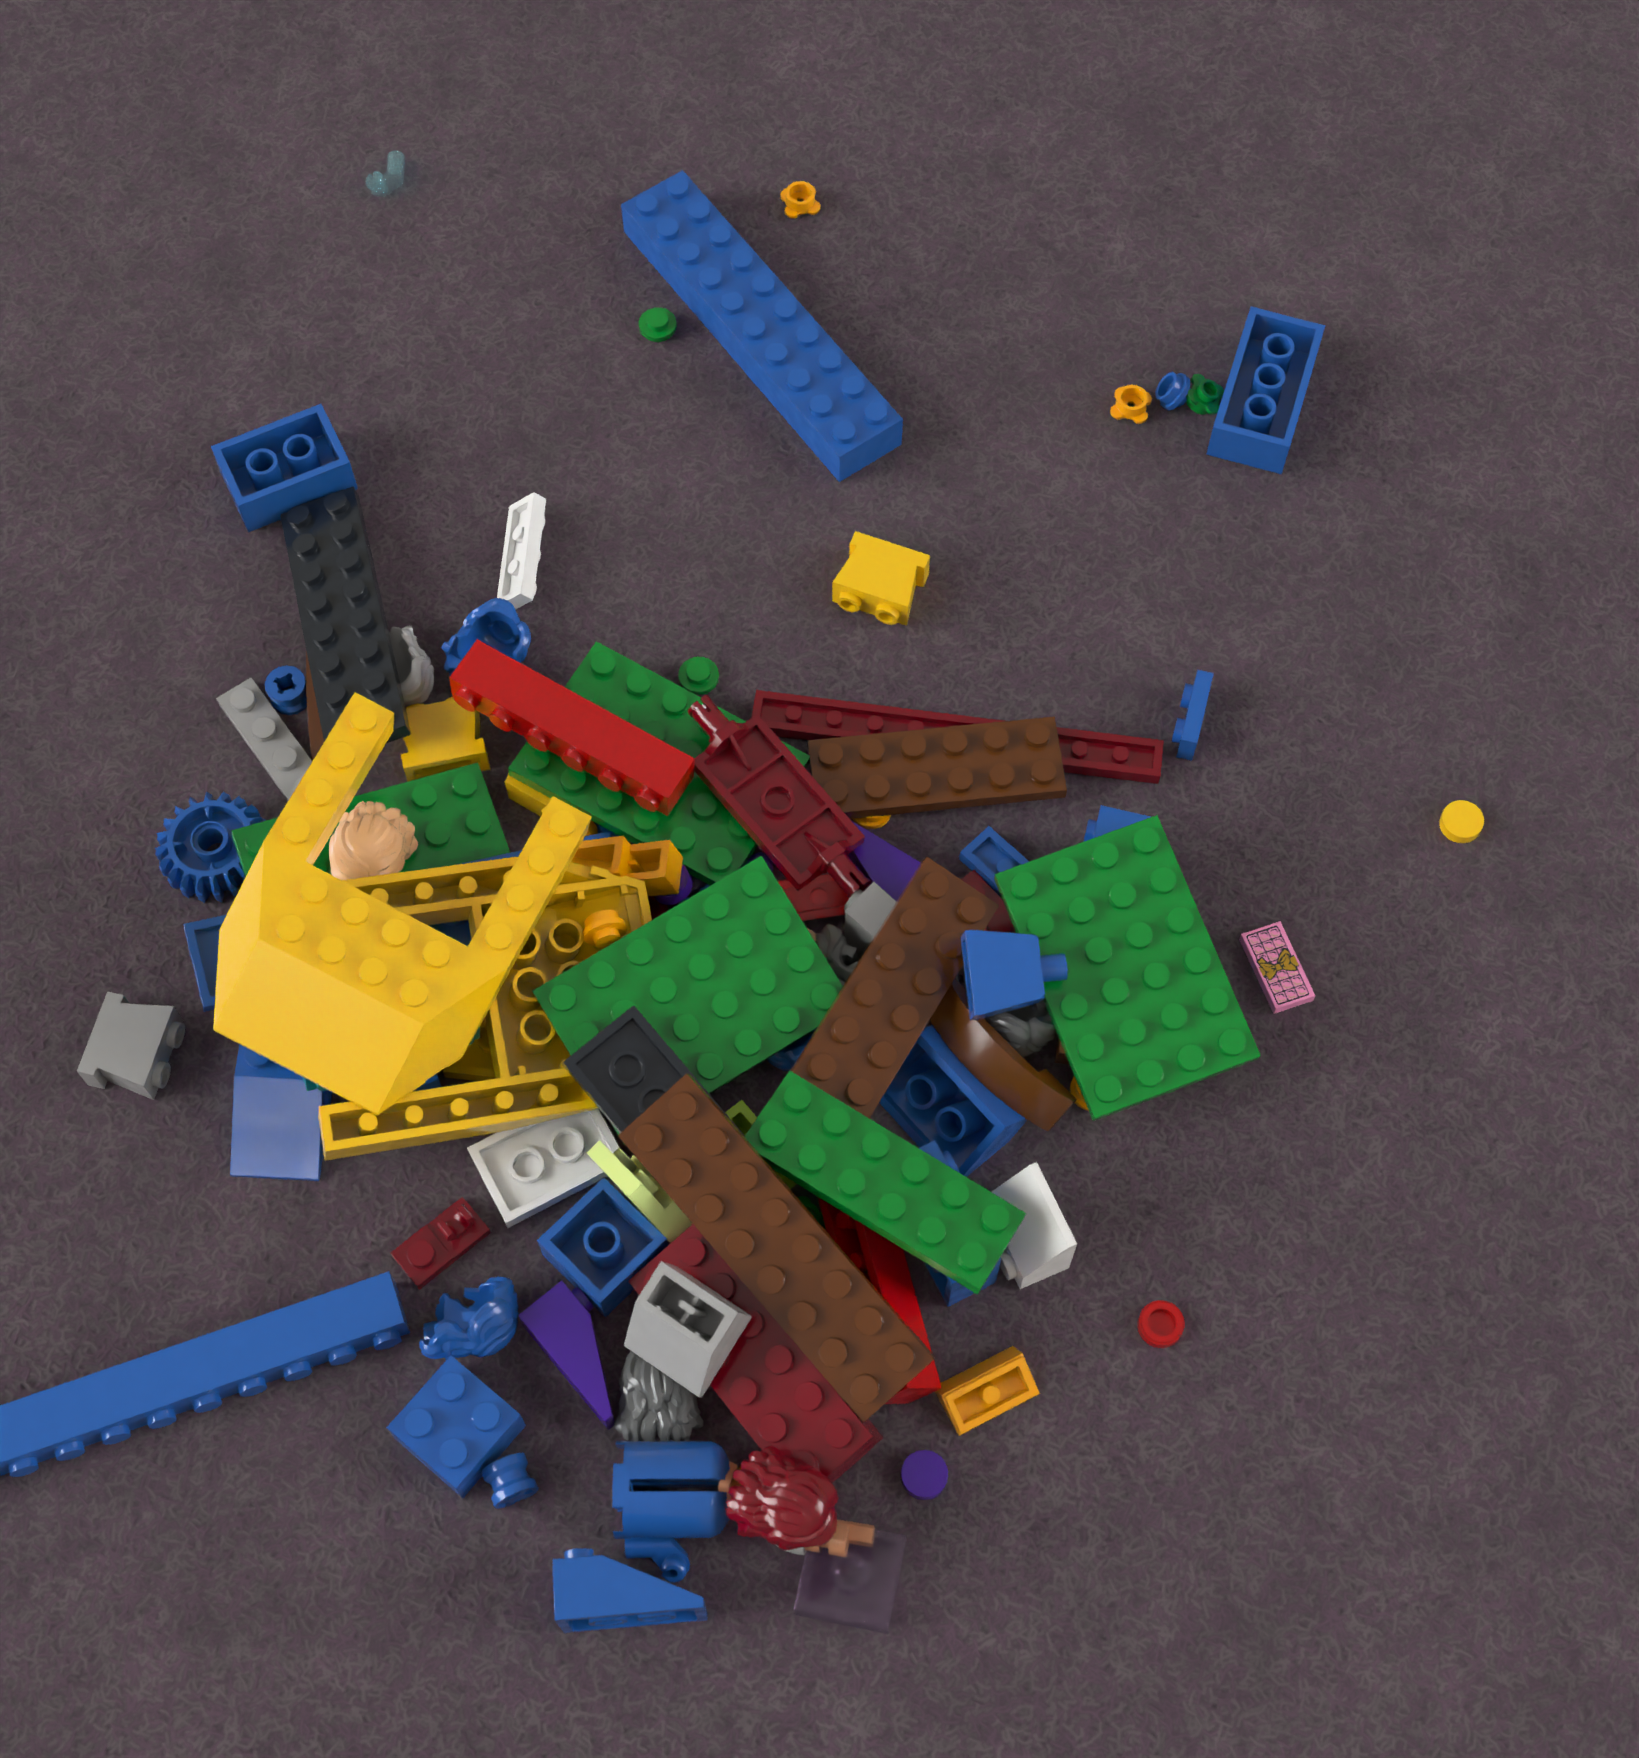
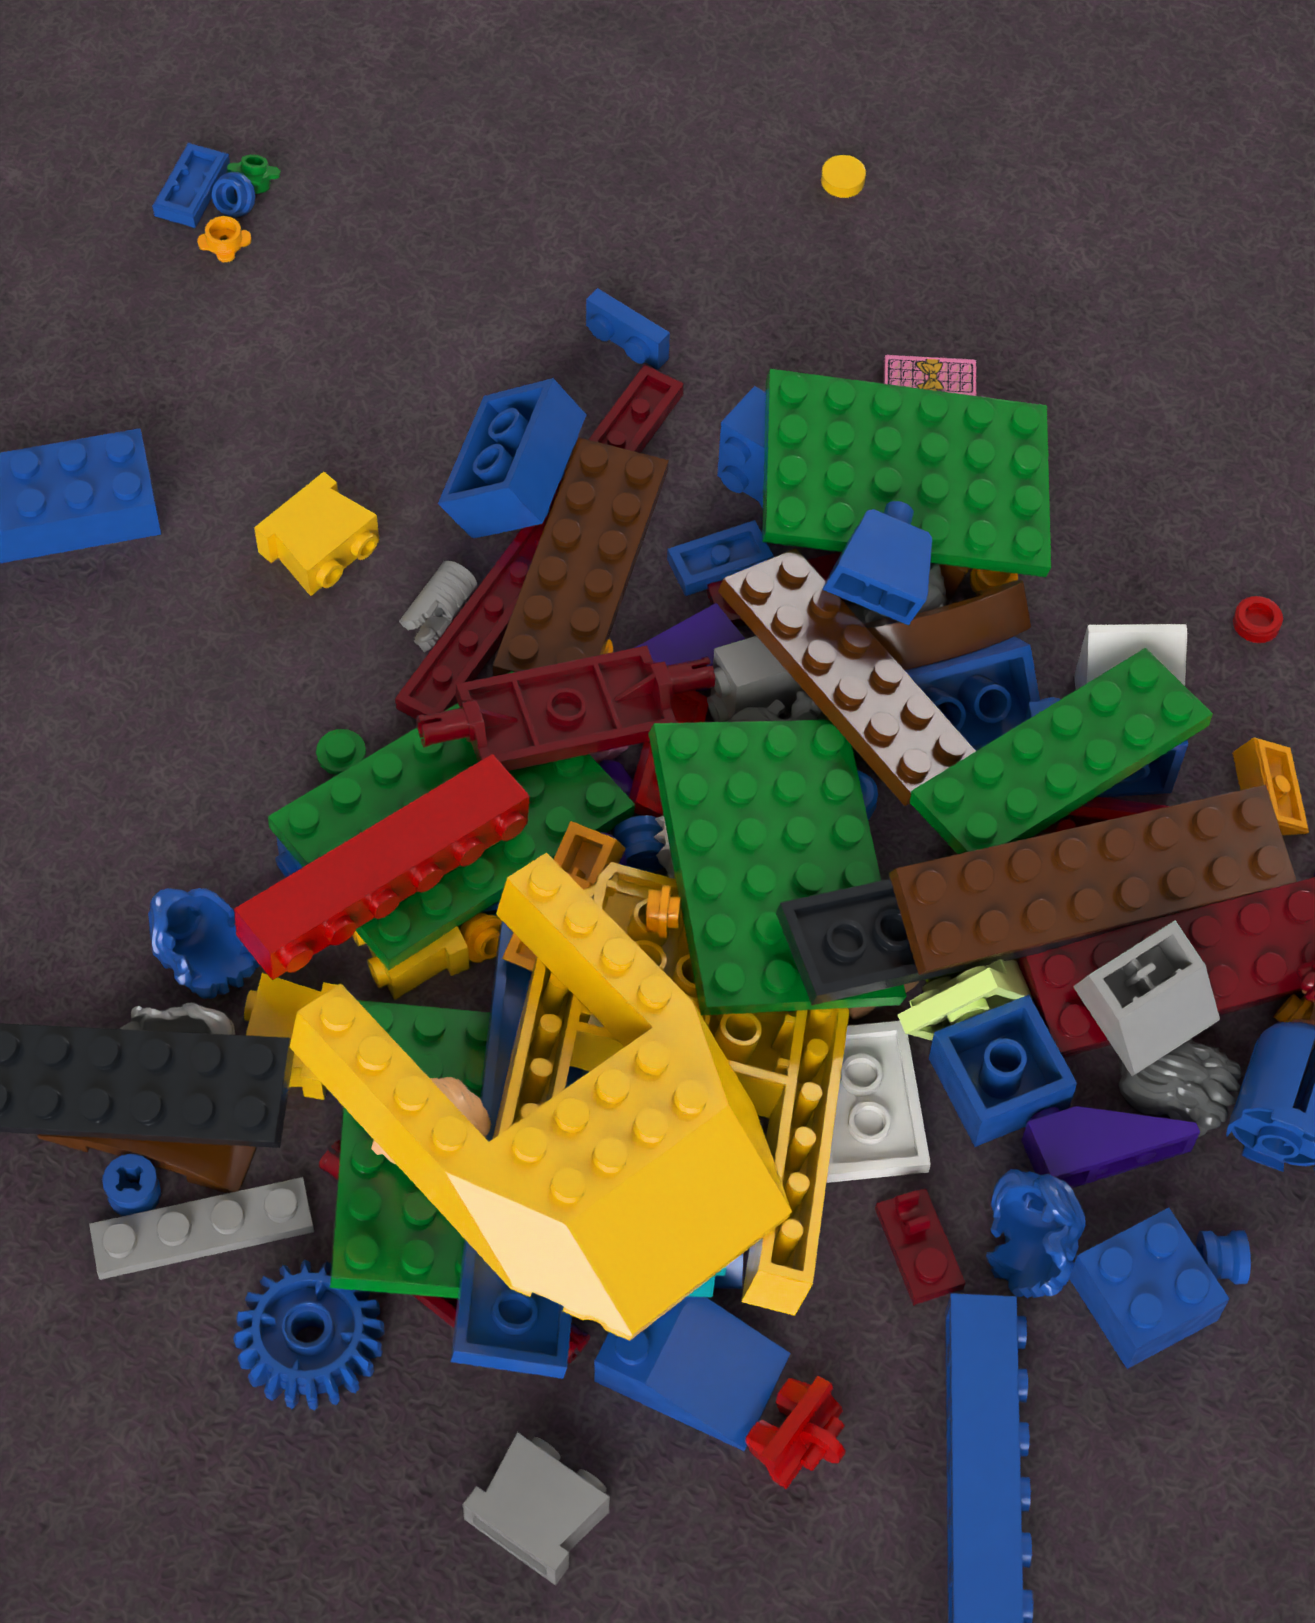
camera: 70 degrees left, 5 degrees down
(249, 1209) = (805, 1434): none -> red hips
(522, 550) = (81, 871): white plate -> none
(867, 684) = (439, 603): none -> light grey hinge
(1007, 678) = (512, 459): none -> blue brick
(1155, 359) = (190, 185): none -> blue plate
(1265, 390) = (286, 115): blue brick -> none

